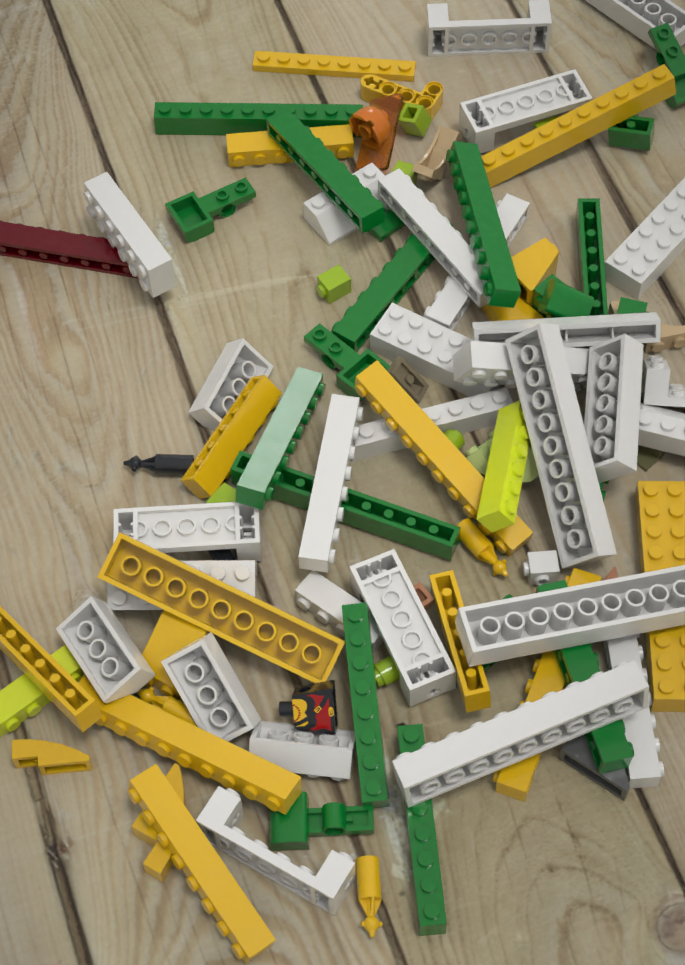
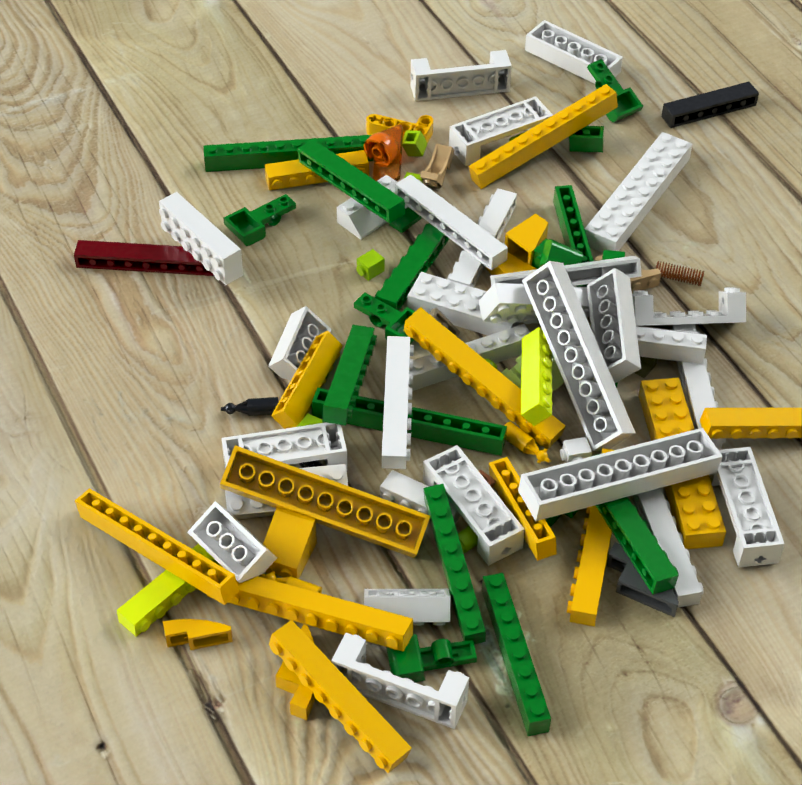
camera: 10 degrees left, 10 degrees down
(211, 689) = (324, 562): white slope -> none
(313, 708) = (410, 571): torso -> none
(333, 65) = (339, 112): yellow plate -> none
(369, 891) = (481, 705): yellow wheel -> none
(483, 225) = (485, 208): green brick -> none
(521, 733) = (586, 564): white brick -> none

